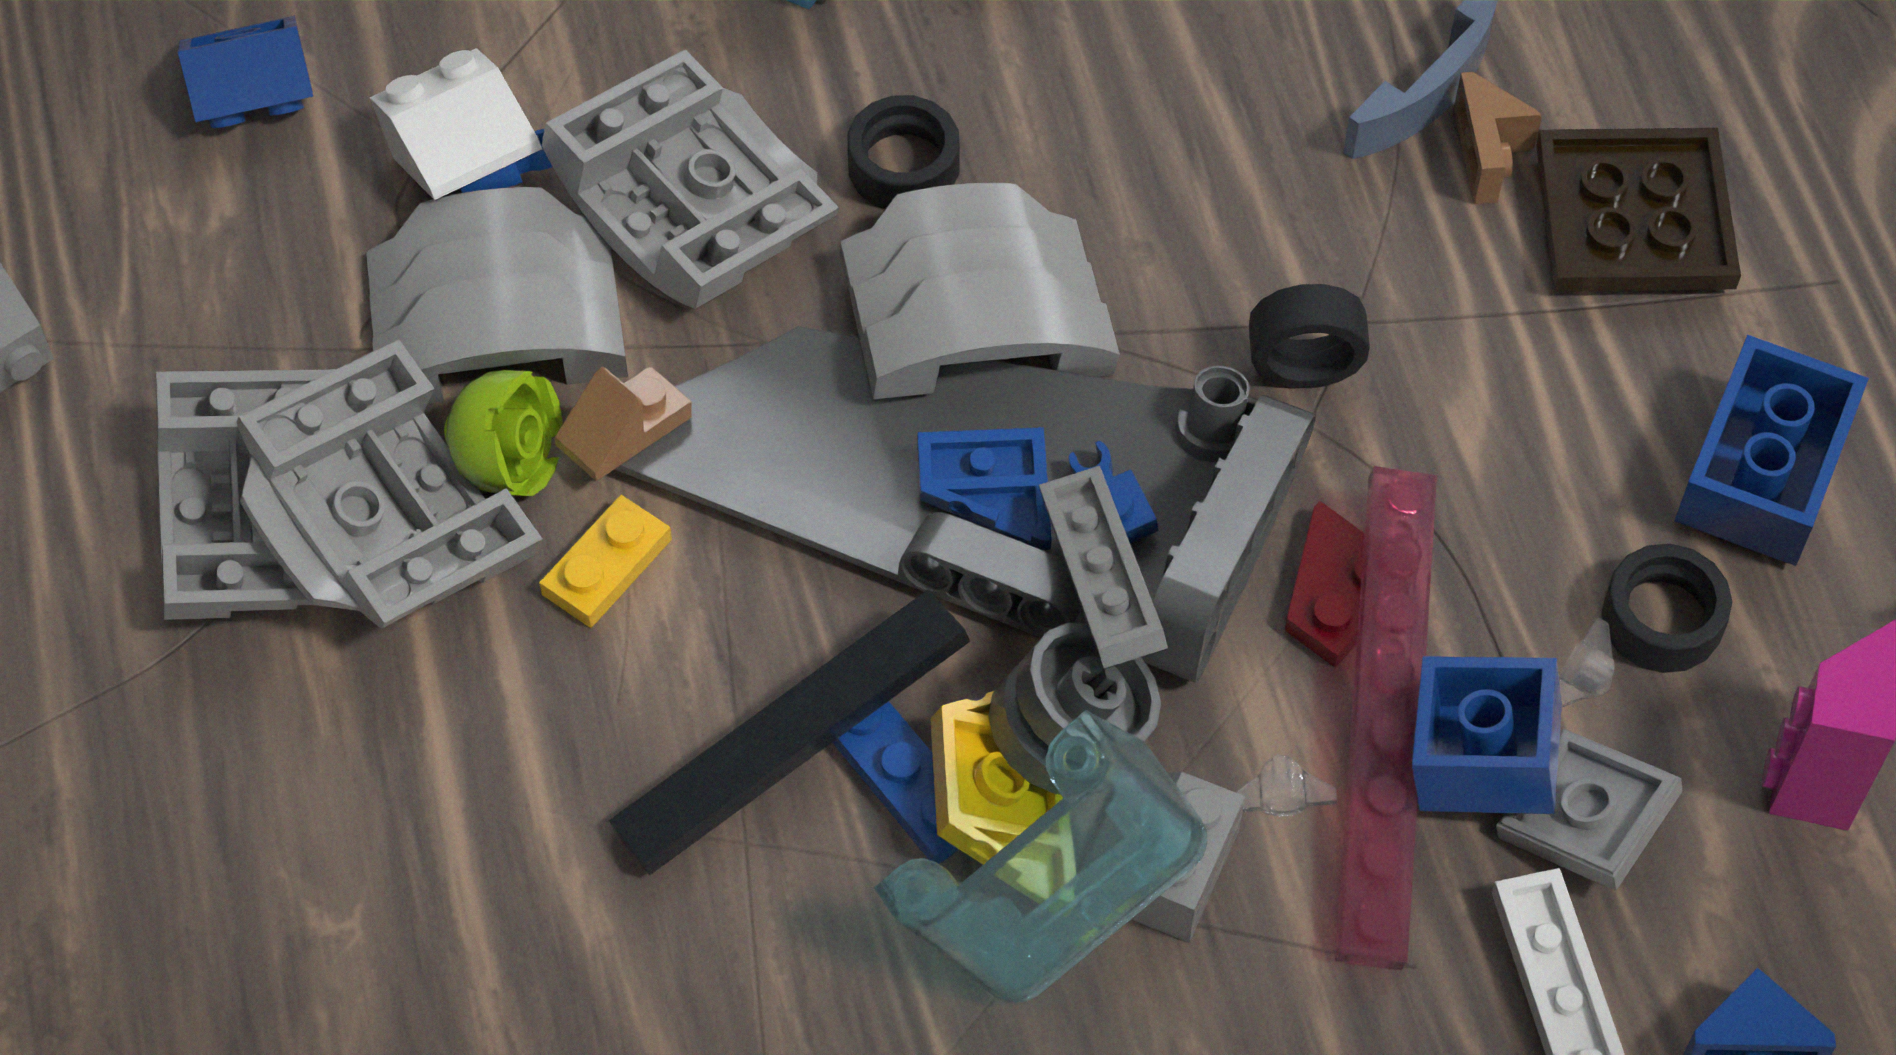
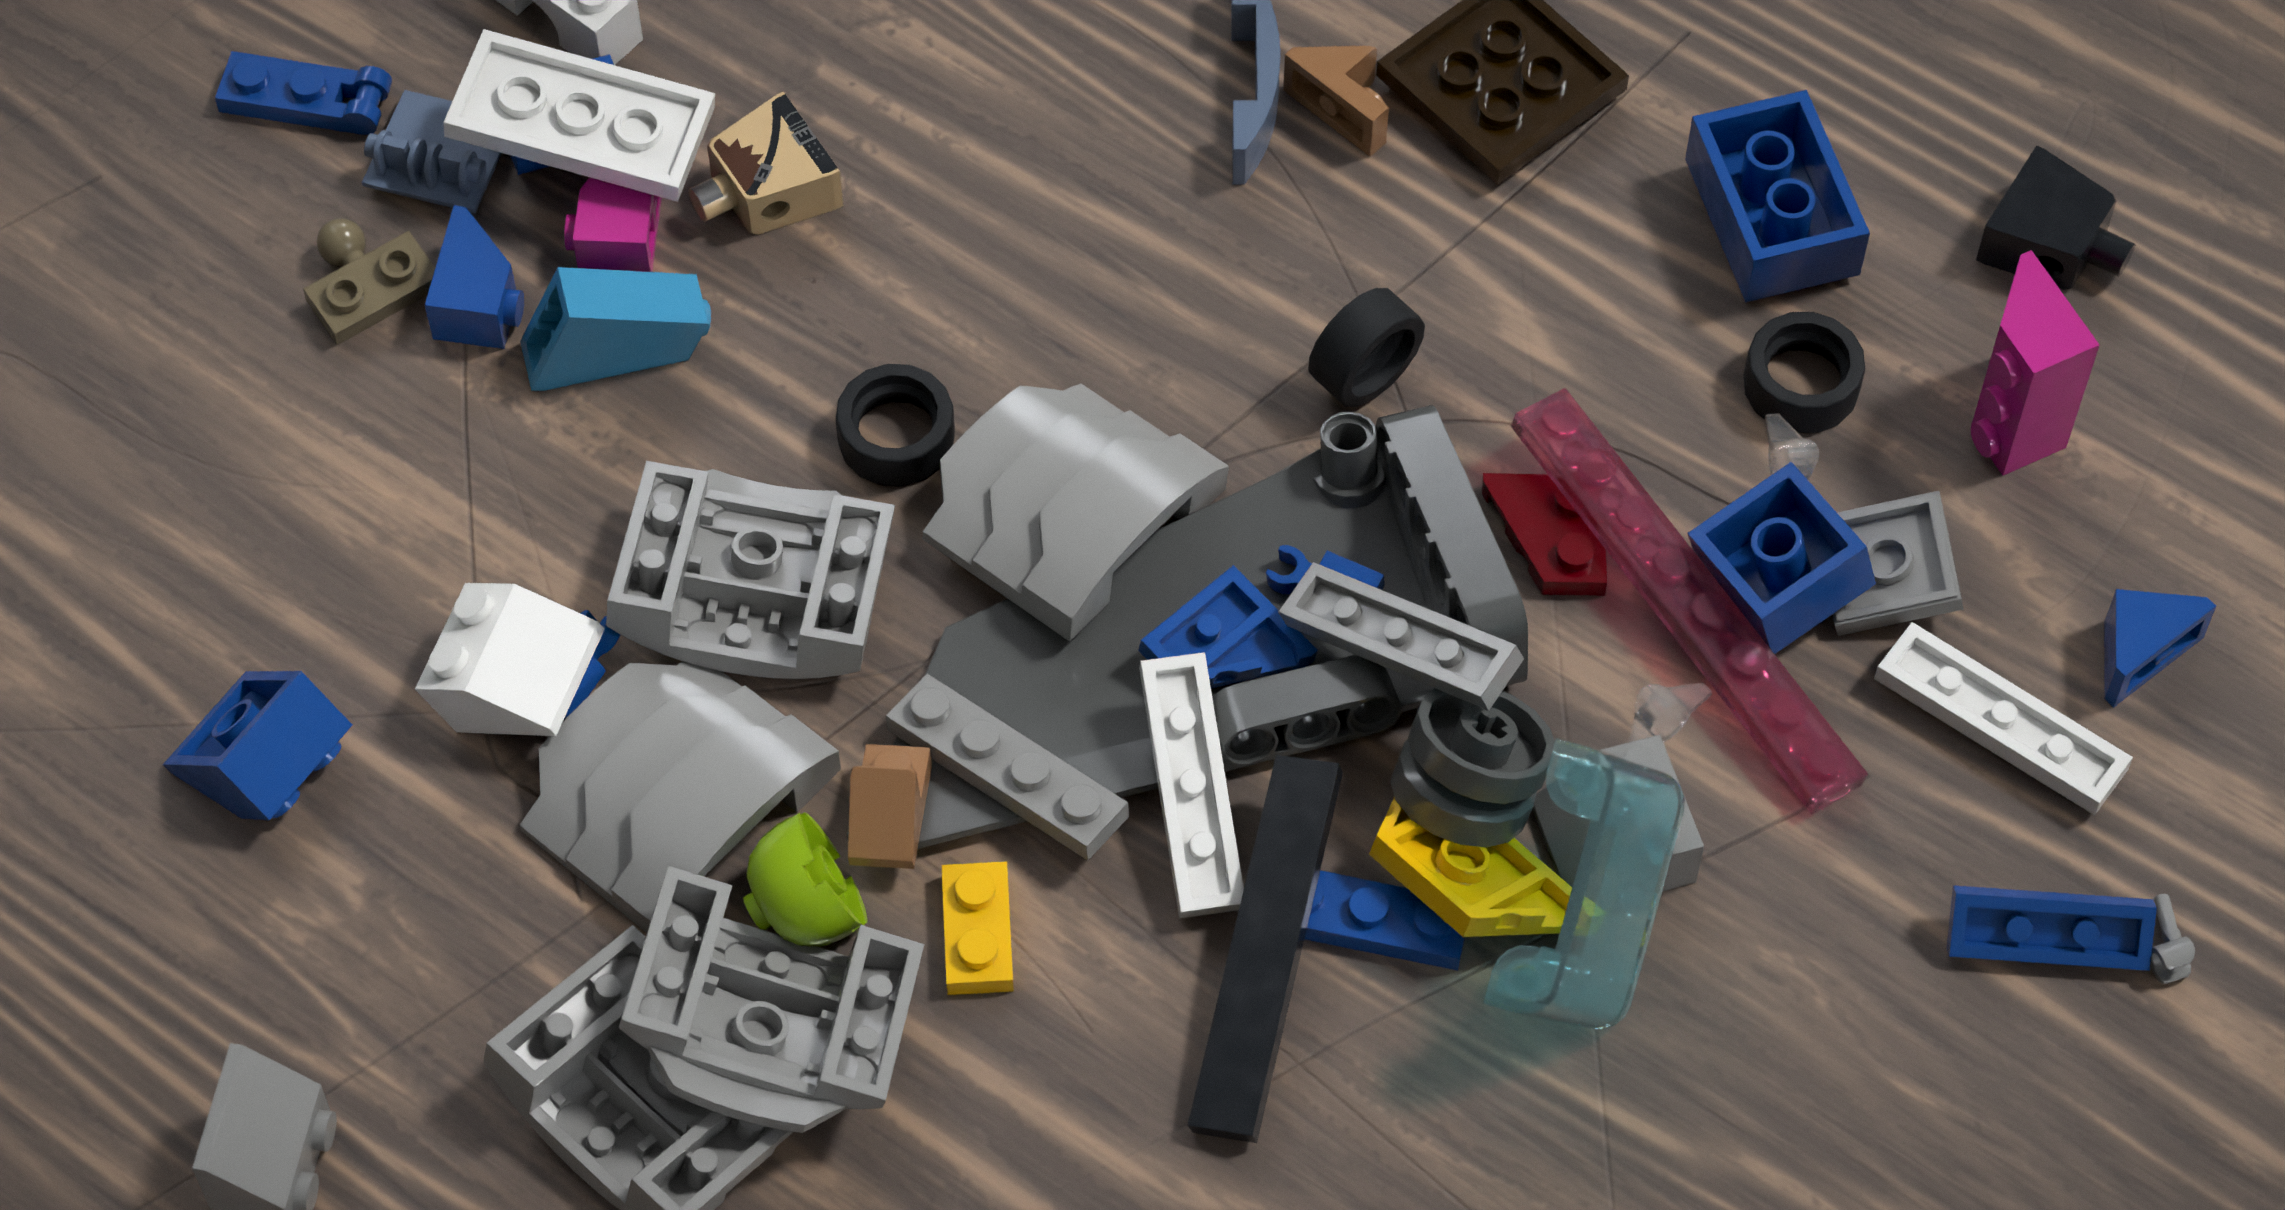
camera: 40 degrees left, 0 degrees up
(735, 458) = (1008, 766): none -> light grey plate
(852, 565) = (1192, 785): none -> white plate

